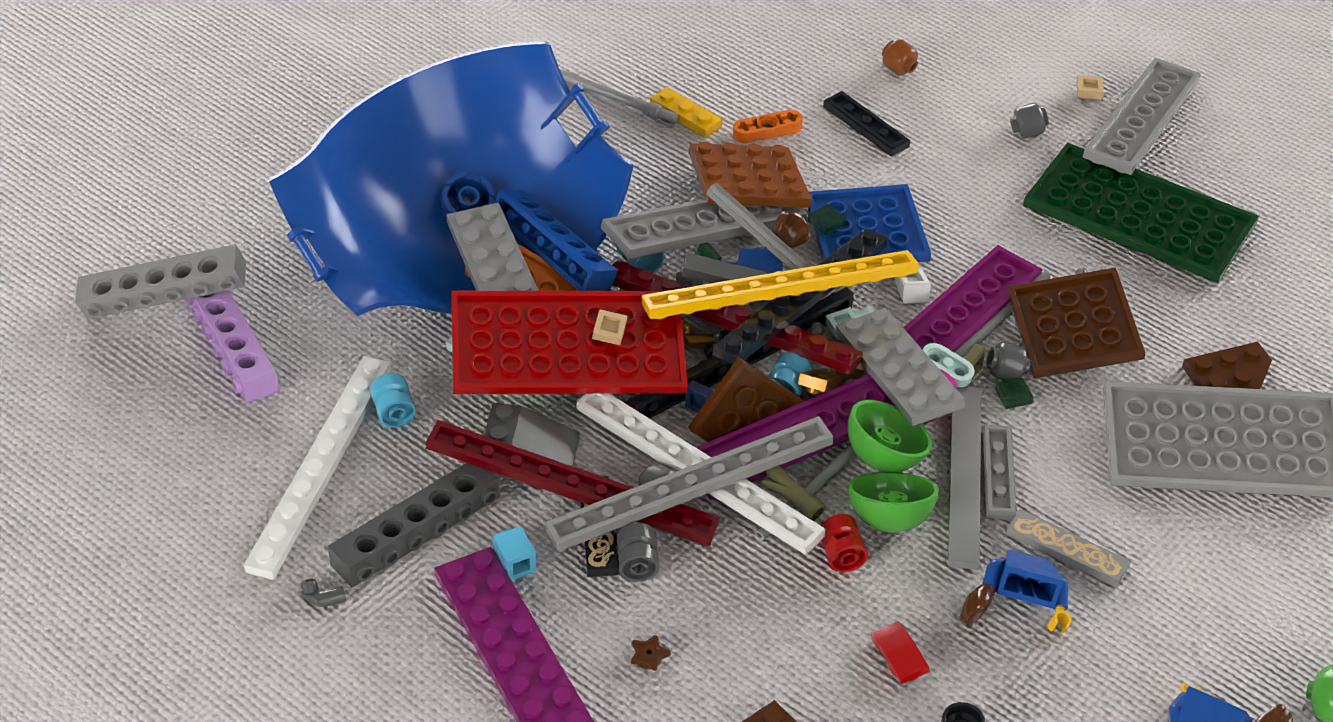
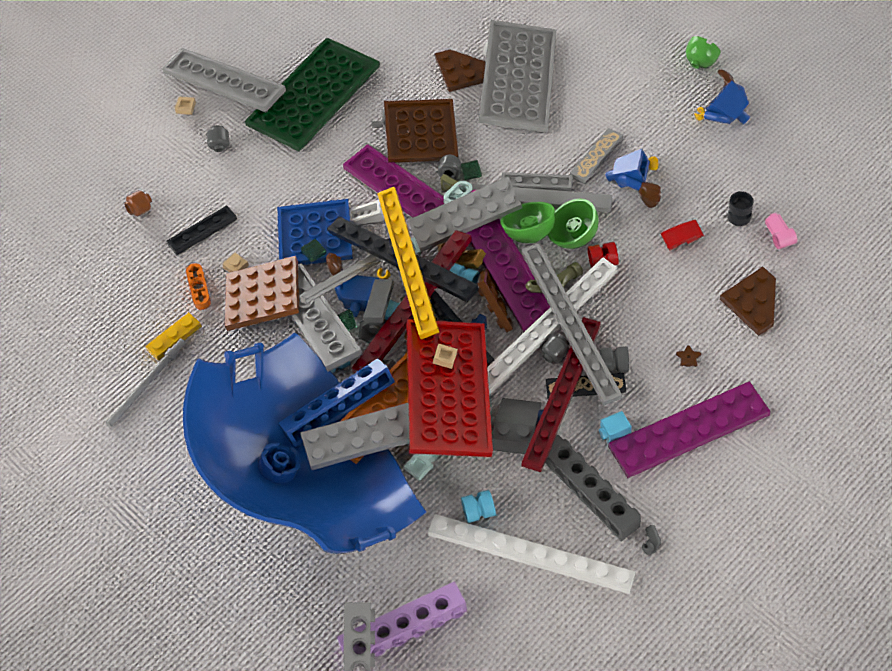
camera: 80 degrees left, 10 degrees up
(808, 157) = (235, 263): none -> tan plate

